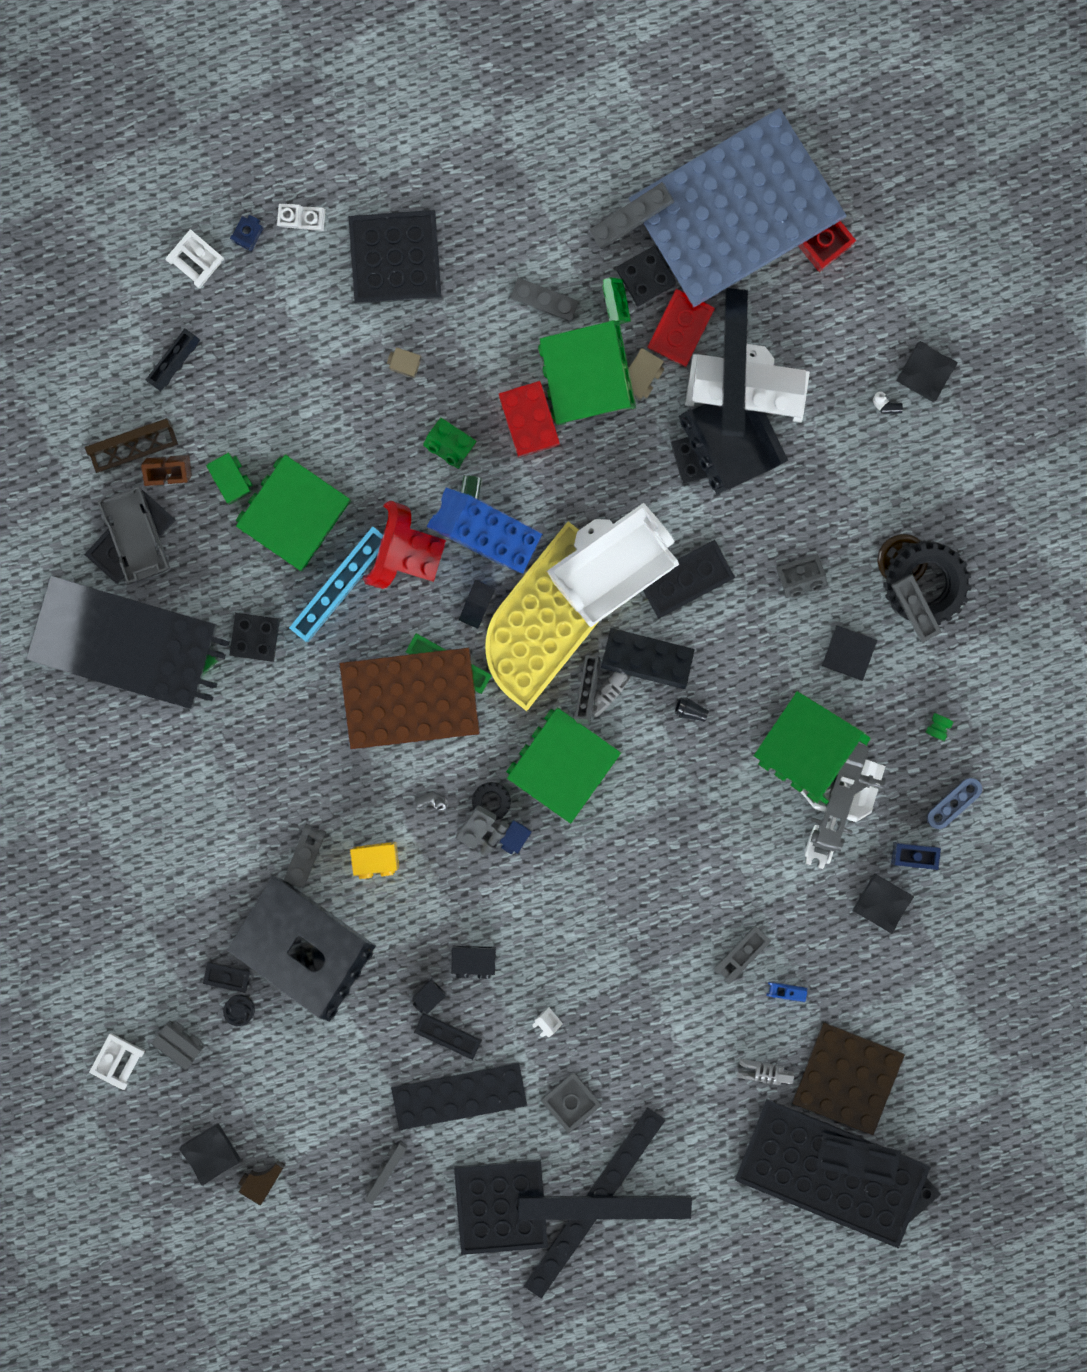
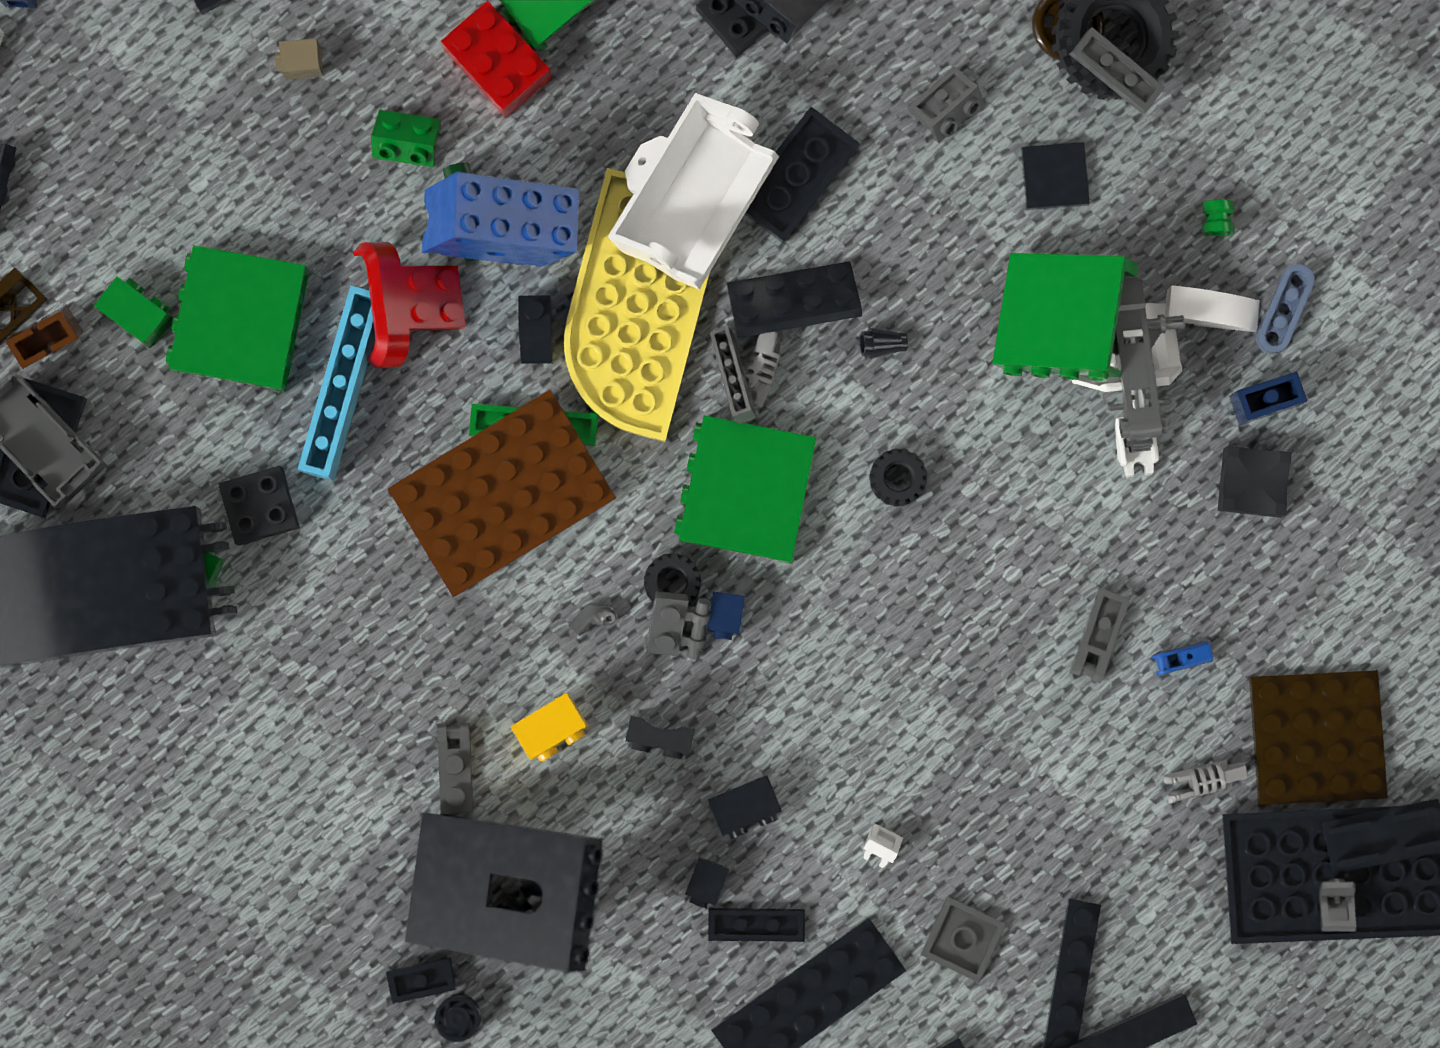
camera: 25 degrees left, 5 degrees down
(446, 902) = (645, 736): none -> black brick
(655, 812) = (912, 463): none -> black tyre
(808, 1187) = (1337, 905): none -> dark grey bracket
(908, 783) = (1212, 308): none -> white slope

